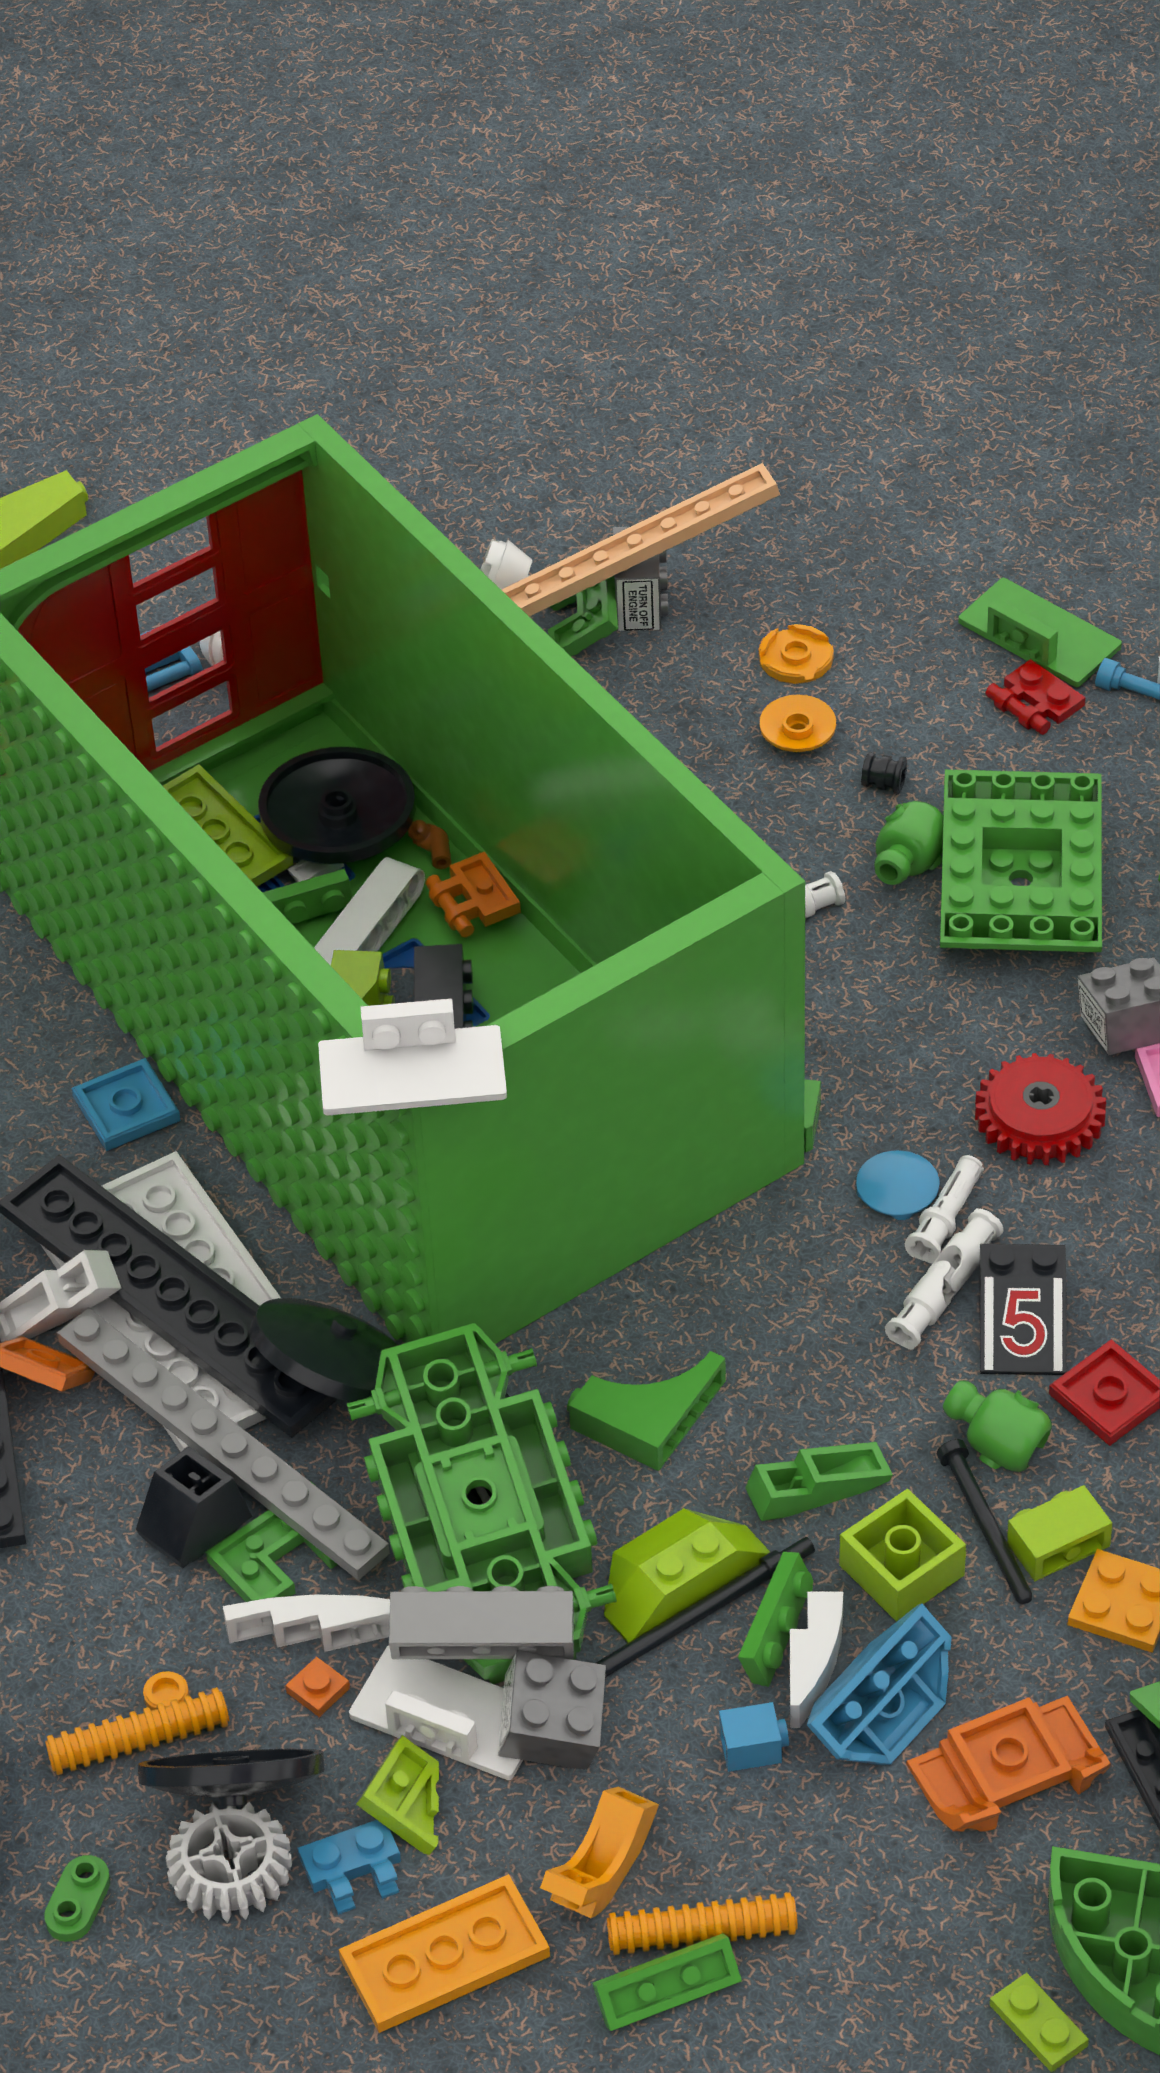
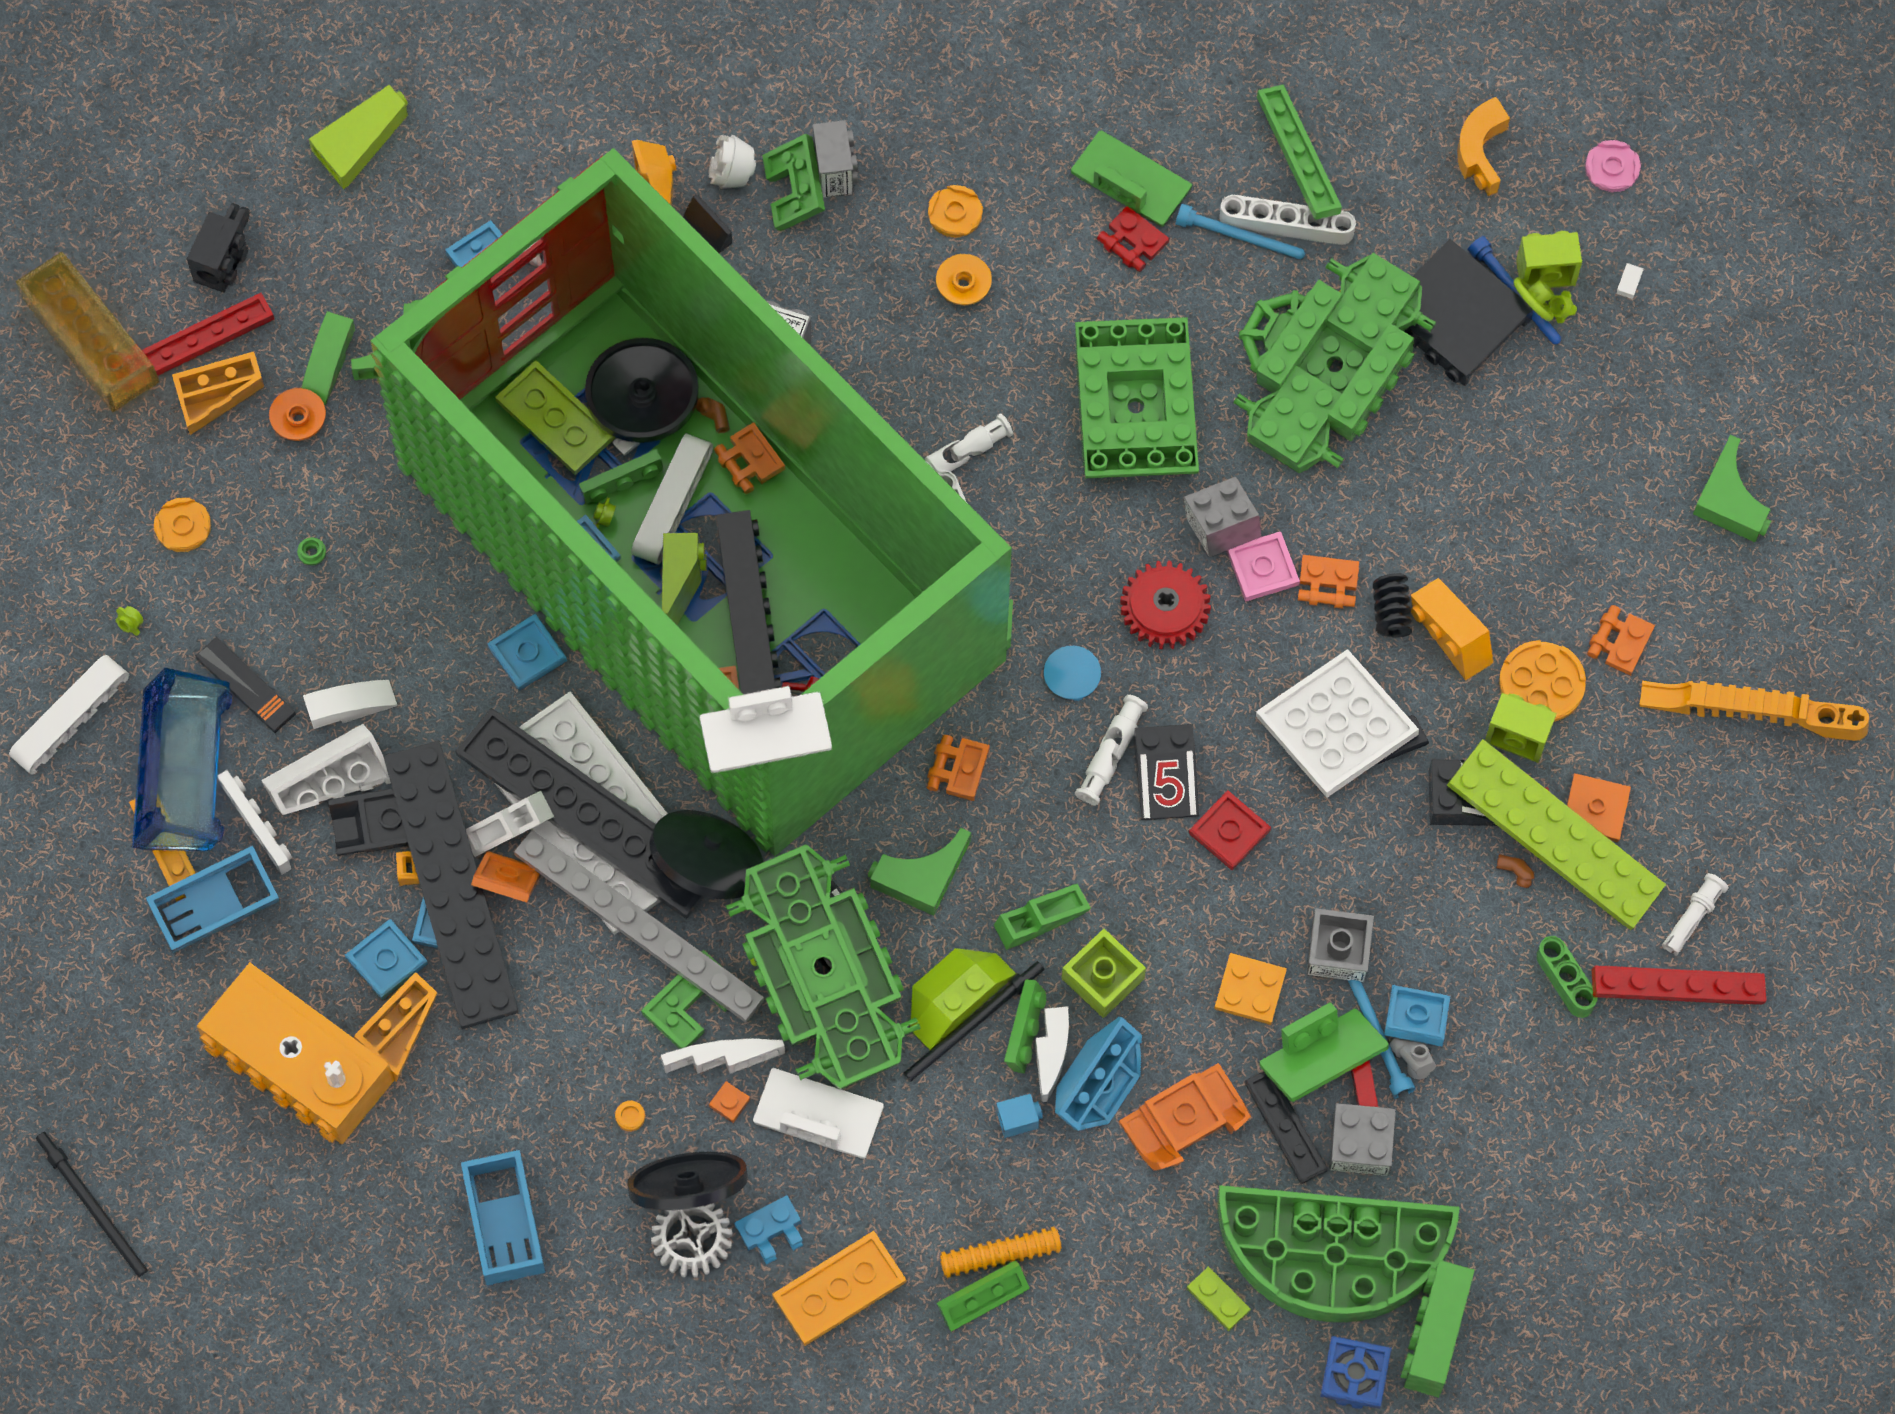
camera: 10 degrees left, 20 degrees up
(77, 1895) = (597, 1270): bright green plate -> none
(137, 1731) = (616, 1147): light orange piece -> none
(190, 1507) = (626, 981): black slope -> none
(405, 1795) = (798, 1177): lime wing -> none
(480, 1623) = (838, 1062): light grey brick -> none
(552, 1710) = (887, 1112): flat silver brick -> none
(605, 1854) = (932, 1211): light orange arch -> none
(643, 540) = (812, 159): light nougat plate -> none
(729, 1290) = (966, 771): none -> orange plate
(884, 772) = (1030, 318): black bush -> none
(909, 842) = (1054, 383): bright green piece -> none
(939, 1220) = (1103, 702): white pin -> none
(955, 1454) = (1130, 889): black bar -> none
(1001, 1426) = (1161, 866): bright green piece -> none
(1059, 1532) = (1203, 943): lime brick -> none

